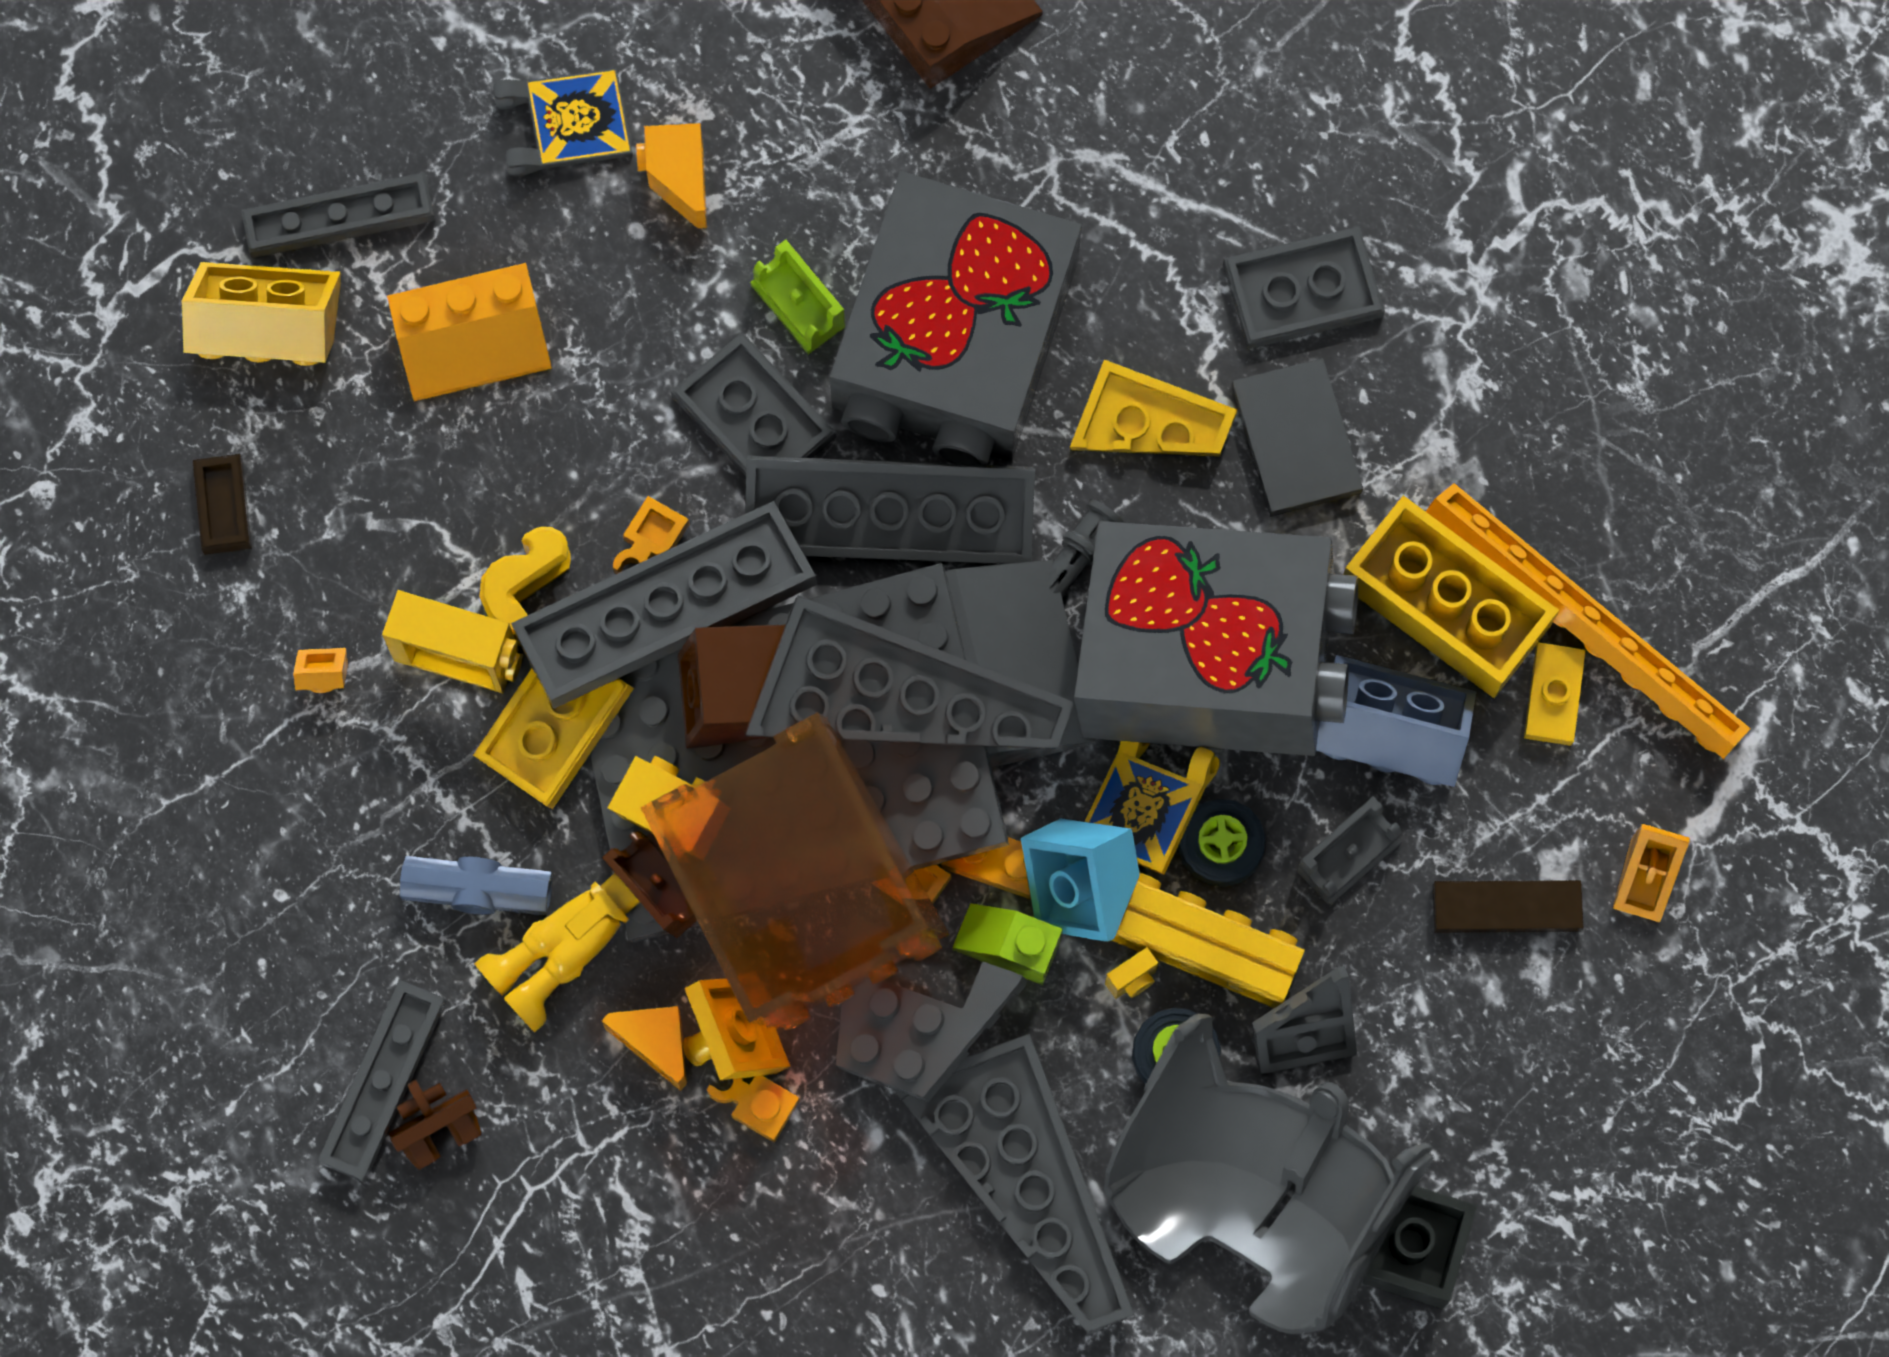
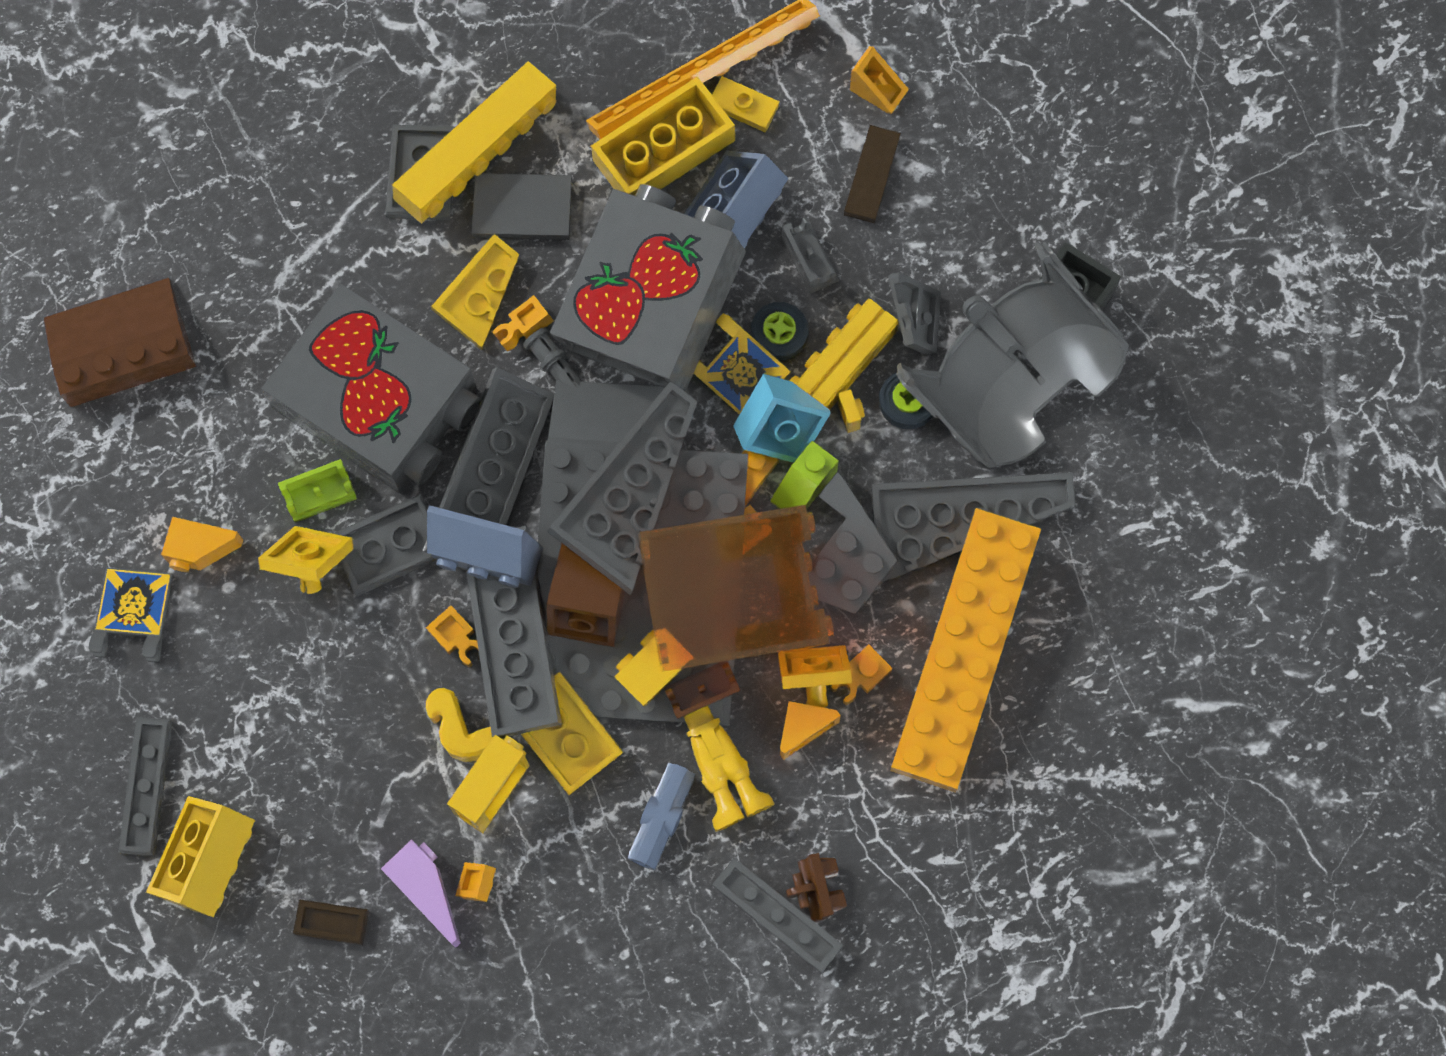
camera: 70 degrees left, 0 degrees up
(296, 604) = (422, 883): none -> lavender slope
(469, 332) = (266, 716): light orange slope -> none
(698, 308) = (306, 555): none -> yellow tile
(759, 525) = (481, 547): none -> sand blue slope
(822, 1231) = (965, 650): none -> light orange brick
(1125, 493) = (525, 321): none -> light orange plate
(1363, 342) = (475, 143): none -> yellow brick

